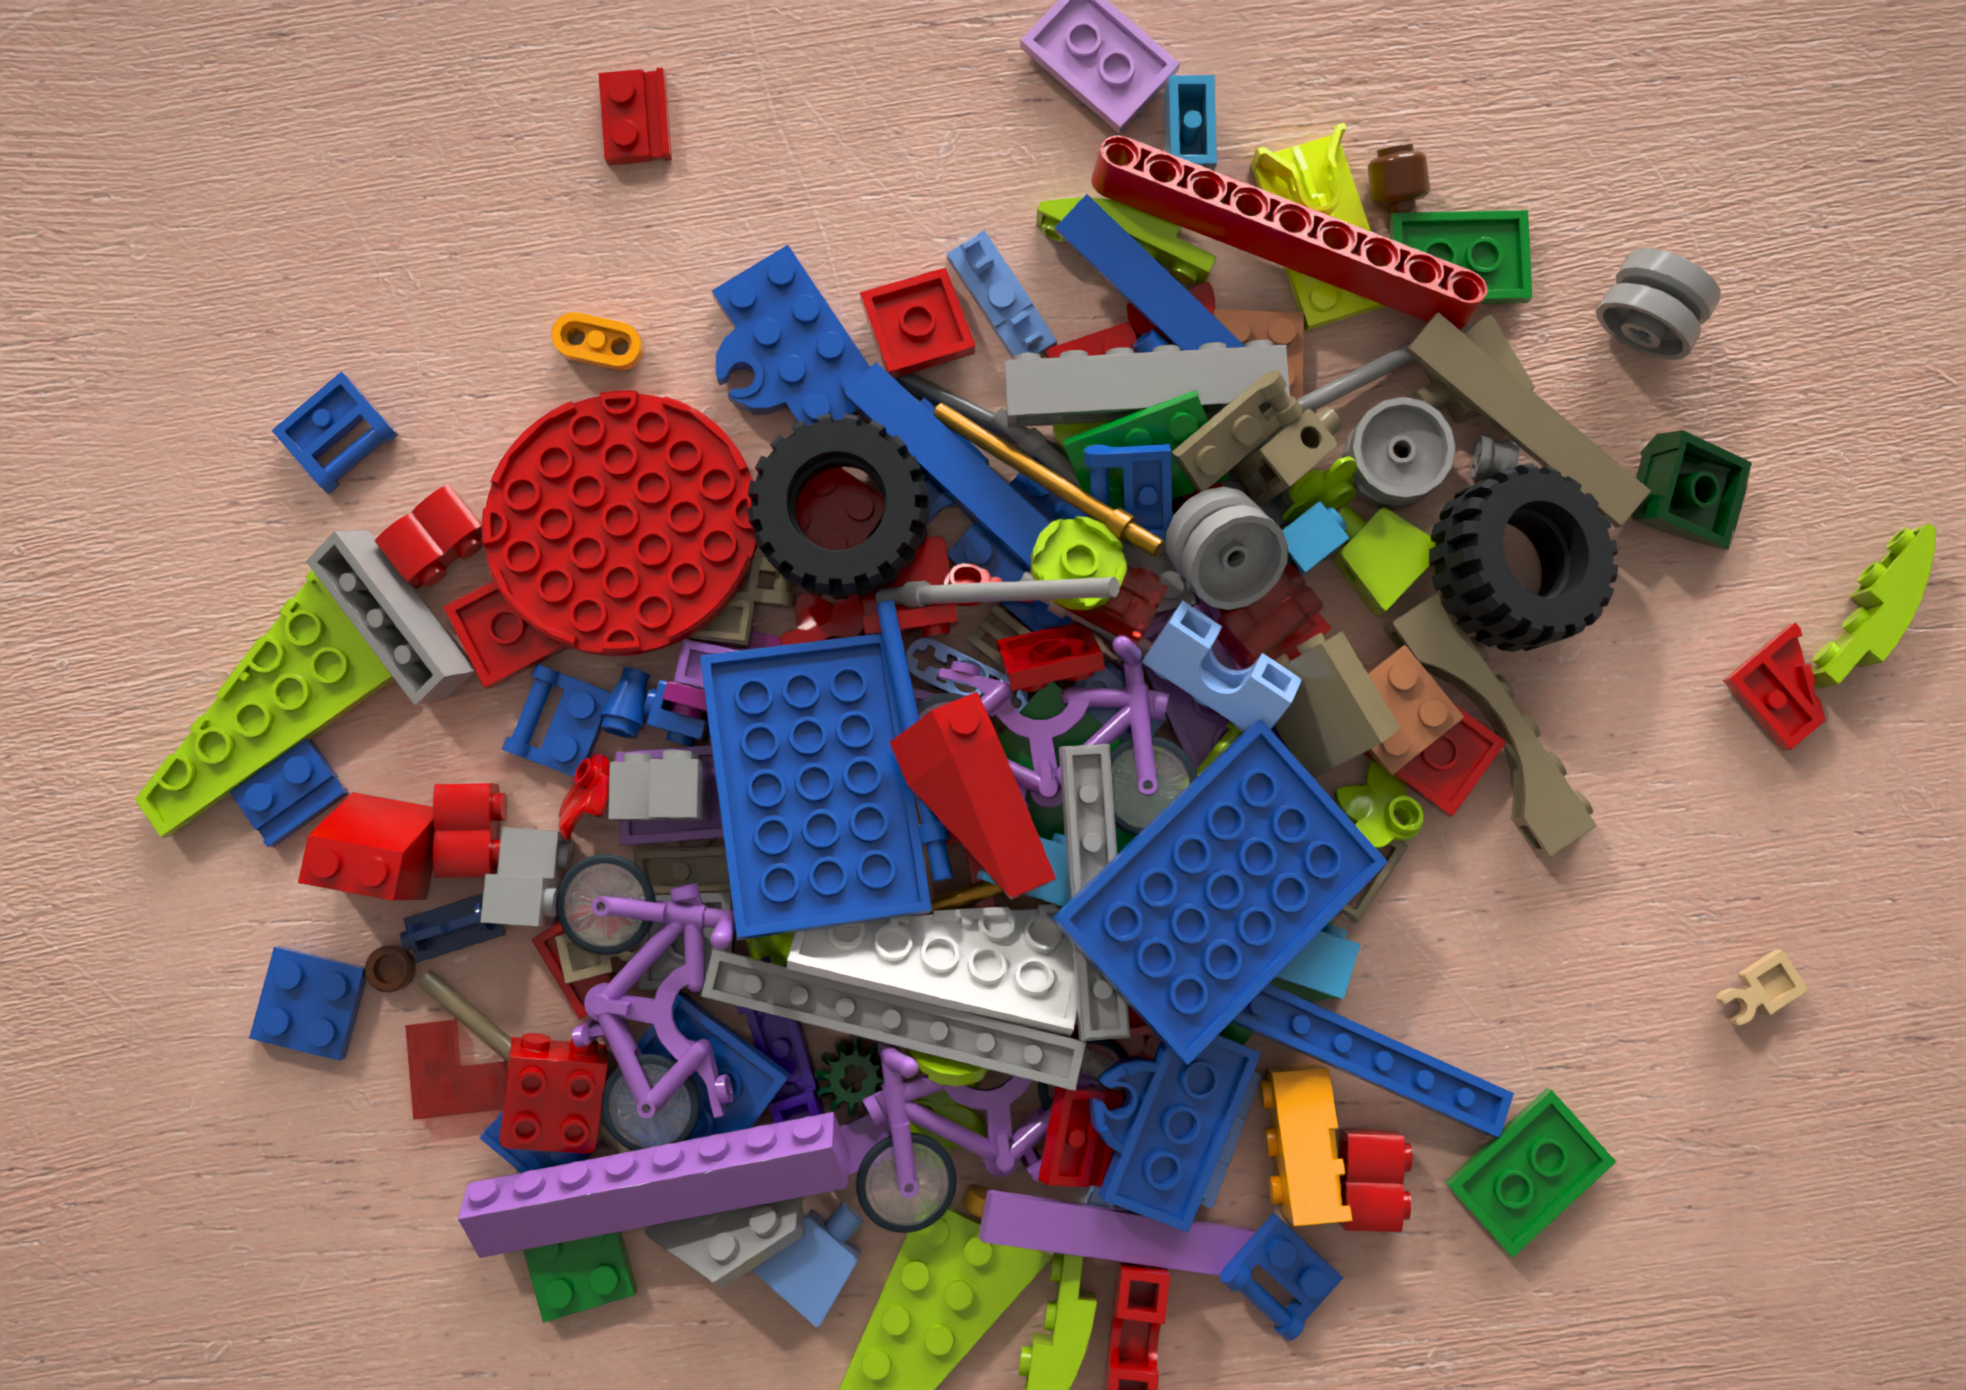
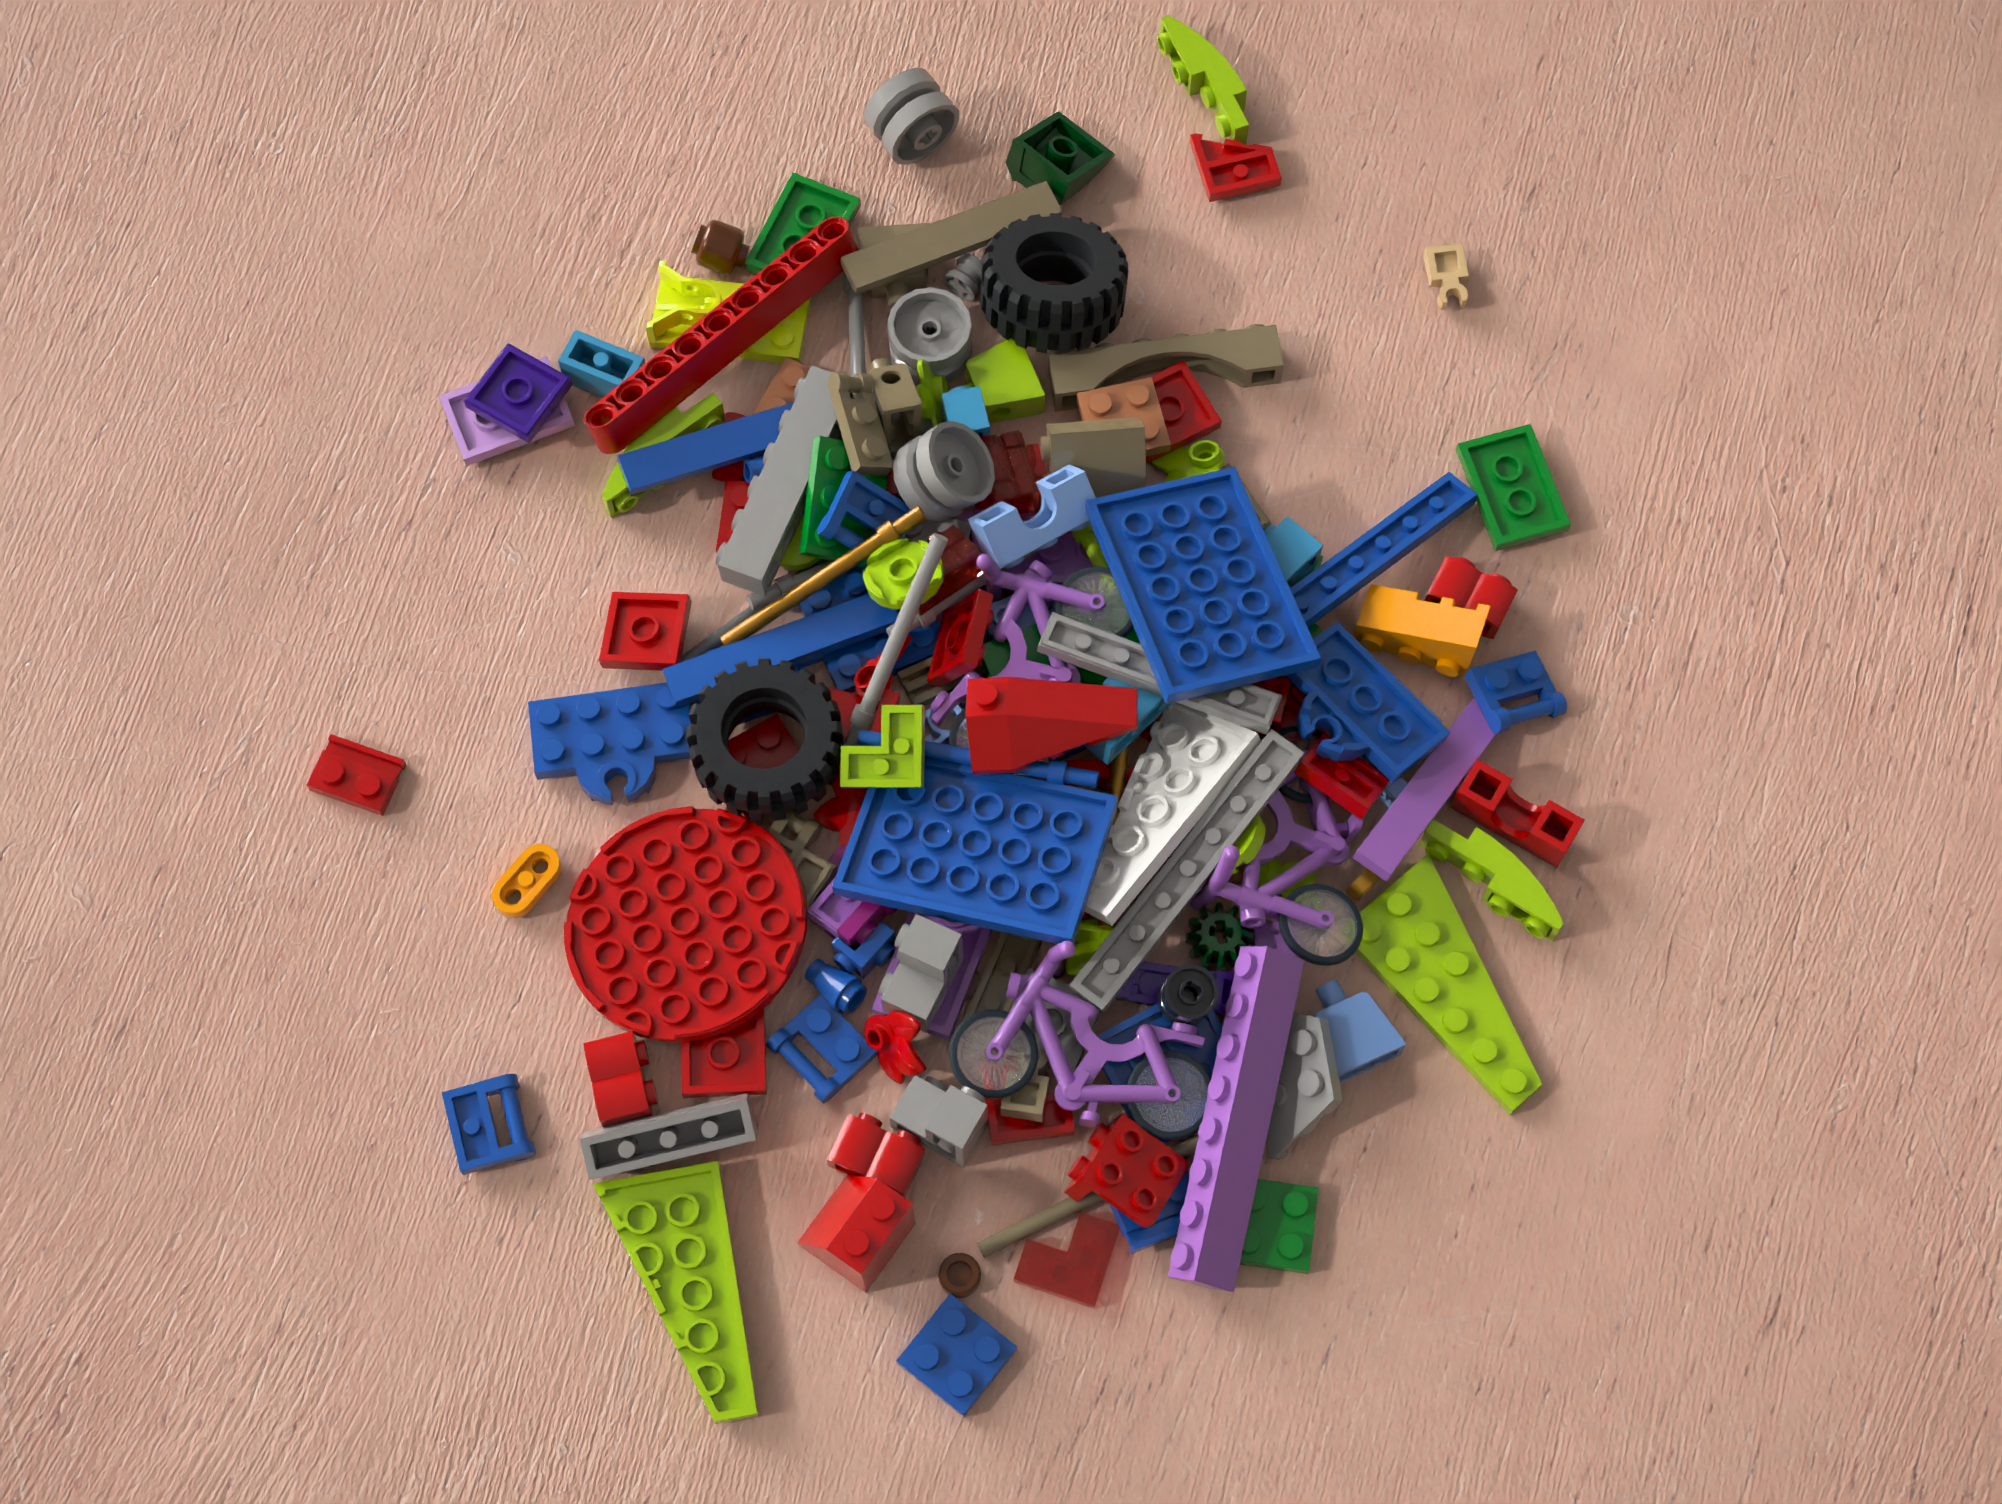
camera: 65 degrees left, 15 degrees down
(289, 792) = (771, 1295): blue plate -> none
(448, 929) = (950, 1205): dark blue hinge -> none
(754, 1080) = (1188, 995): none -> black wheel
(868, 655) = (899, 758): none -> lime plate
(1000, 296) = (657, 566): medium blue plate -> none
(1118, 55) = (518, 393): none -> dark purple plate

